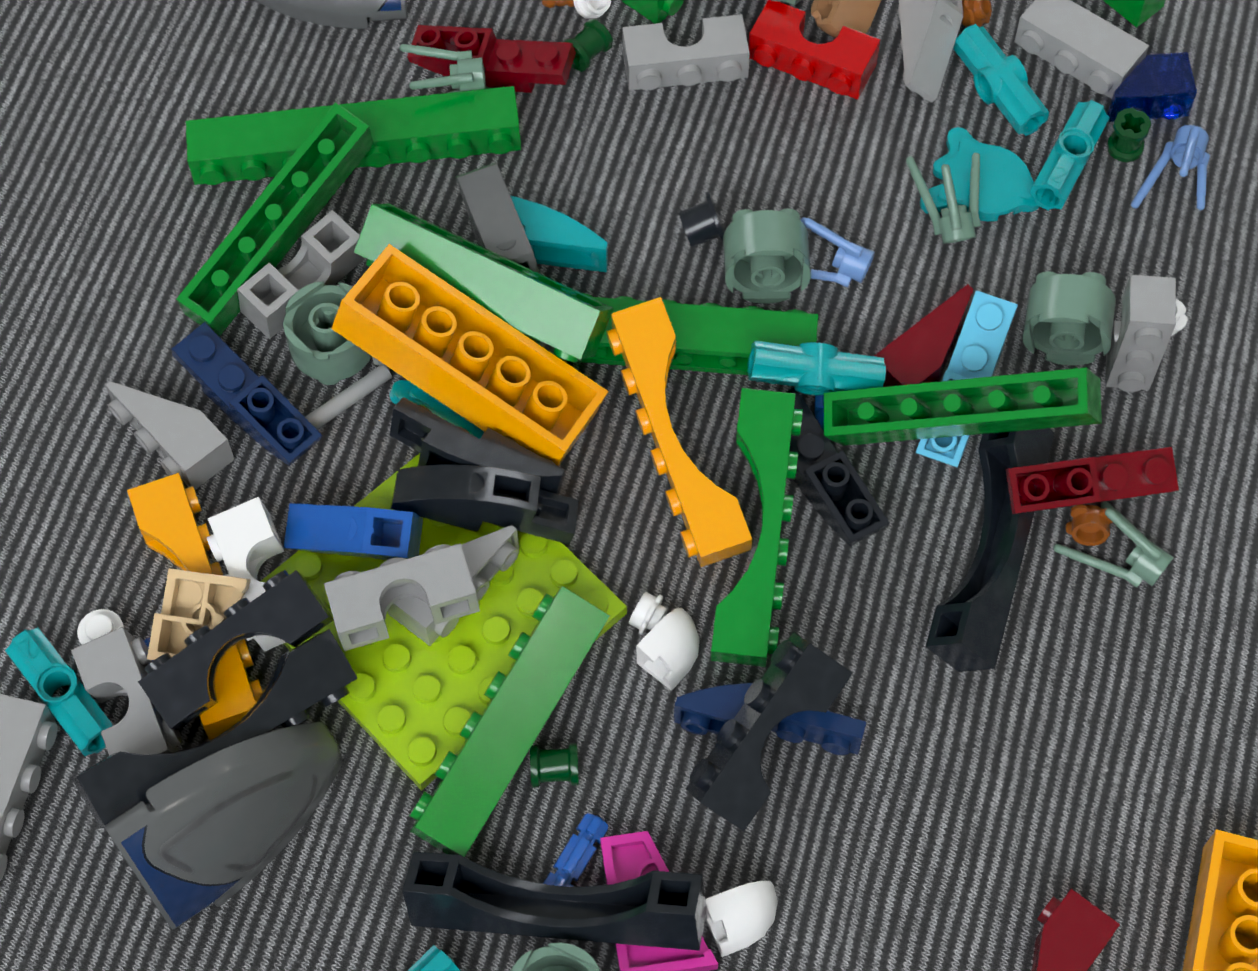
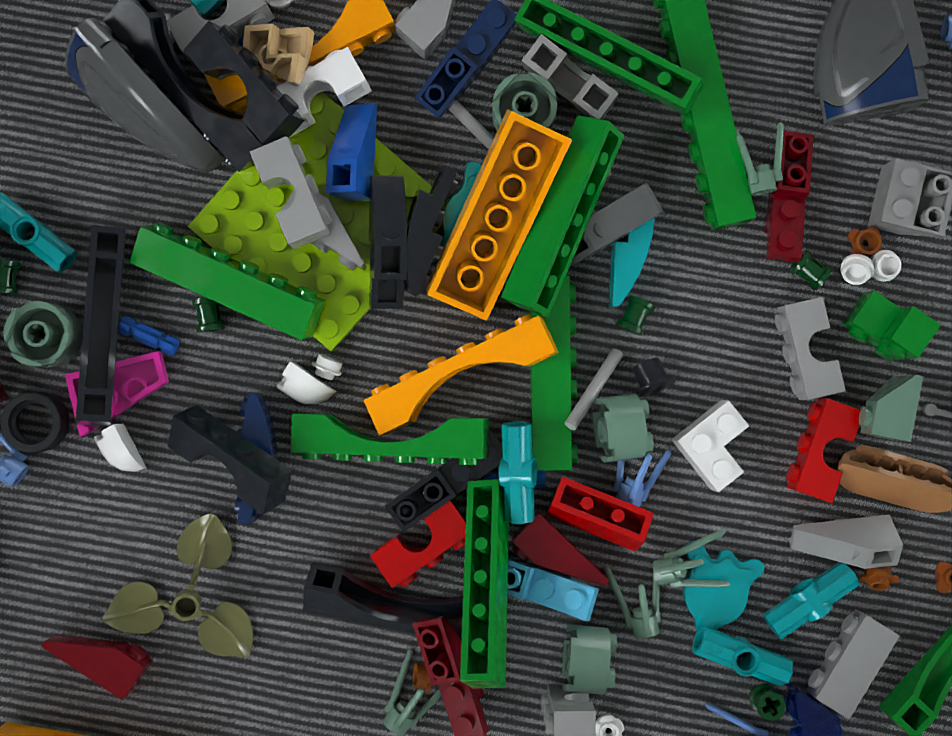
camera: 85 degrees right, 25 degrees up
(622, 234) = (635, 315): none -> dark green bush
(713, 284) = (593, 389): none -> light grey bar
(797, 171) = (704, 444): none -> white brick
(878, 290) = (599, 514): none -> red brick
(932, 539) = (400, 561): none -> red arch
(1020, 260) = (644, 618): none -> sand green plant
(1025, 790) = (224, 632): none -> olive plant

